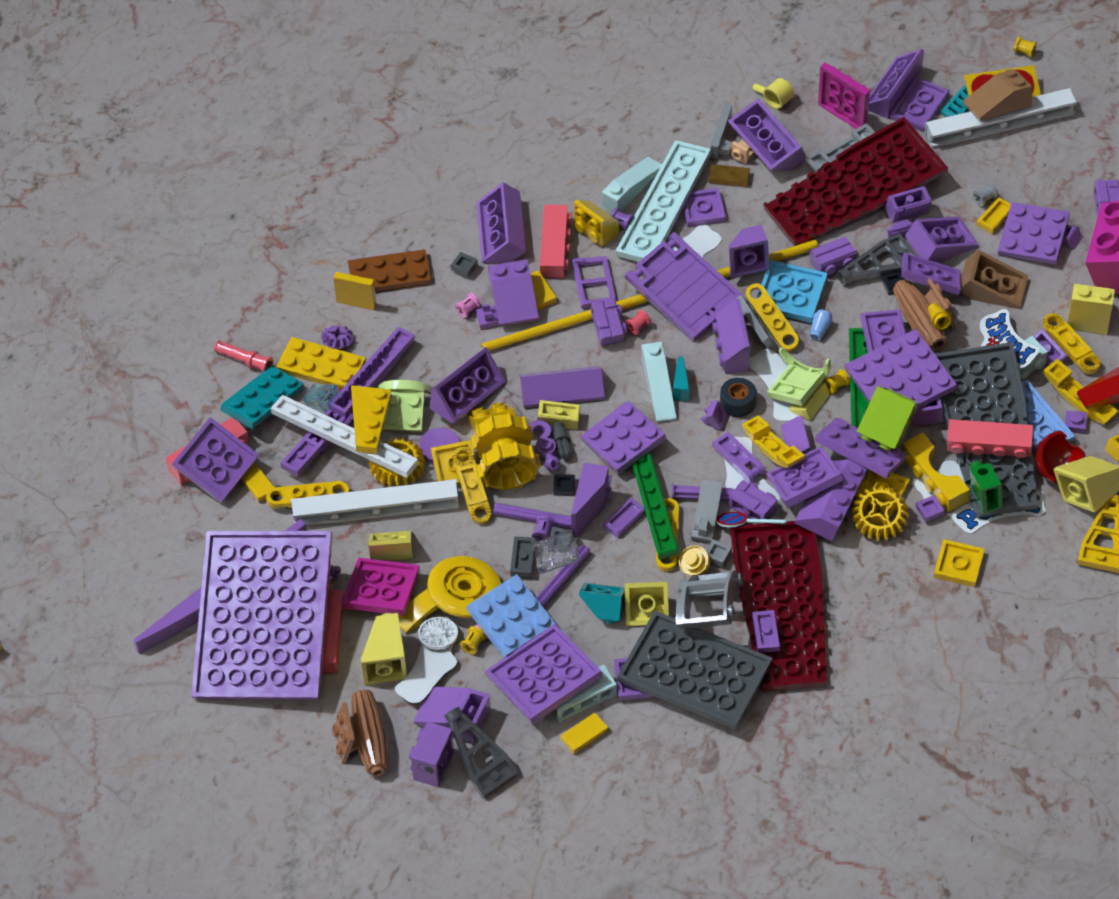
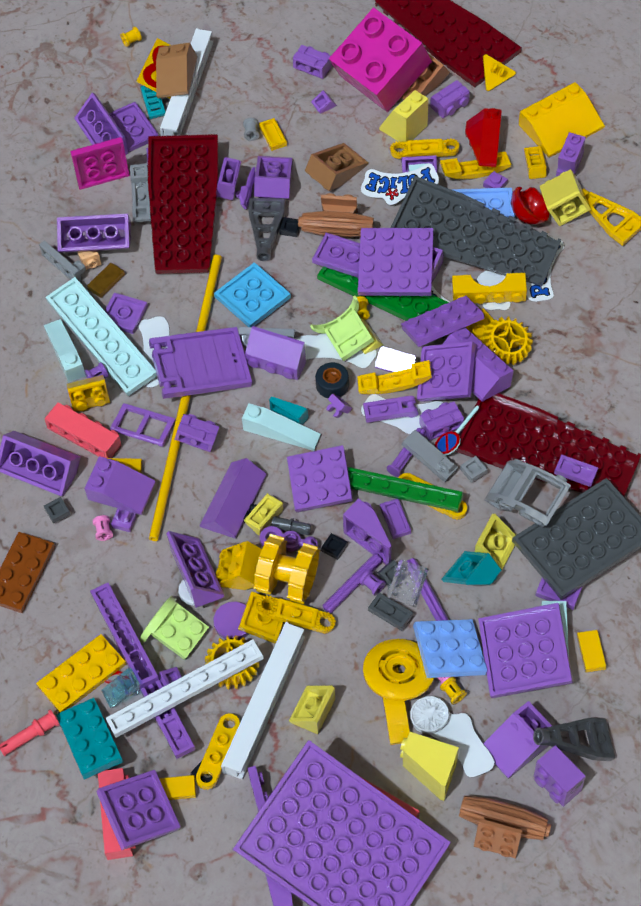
camera: 60 degrees left, 5 degrees up
(345, 337) = (62, 653): medium lavender gear -> none
(355, 290) = (29, 605): yellow tile -> none
(369, 415) = (181, 656): yellow wing -> none
(380, 586) = (357, 736): dark pink plate -> none
(638, 322) = (209, 412): coral bush -> none
(694, 560) = (474, 488): yellow plate -> none
(749, 252) = (206, 296): medium lavender slope -> none
(772, 317) = (271, 318): yellow plate -> none
(777, 93) = (53, 207): light yellow piece -> none
(820, 324) = (298, 292): light blue cone -> none
(832, 255) = (239, 251): medium lavender brick -> none
(887, 418) = (438, 284): lime slope -> none
(921, 269) = (305, 196): medium lavender tile -> none
(929, 508) = (519, 309): medium lavender plate -> none
(939, 317) = (357, 209): yellow cone -> none
(959, 563) = (577, 316): yellow tile -> none
(984, 479) = (532, 259): green torso -> none
(989, 438) = (491, 234): coral brick -> none
(1033, 233) = (310, 118): medium lavender plate -> none

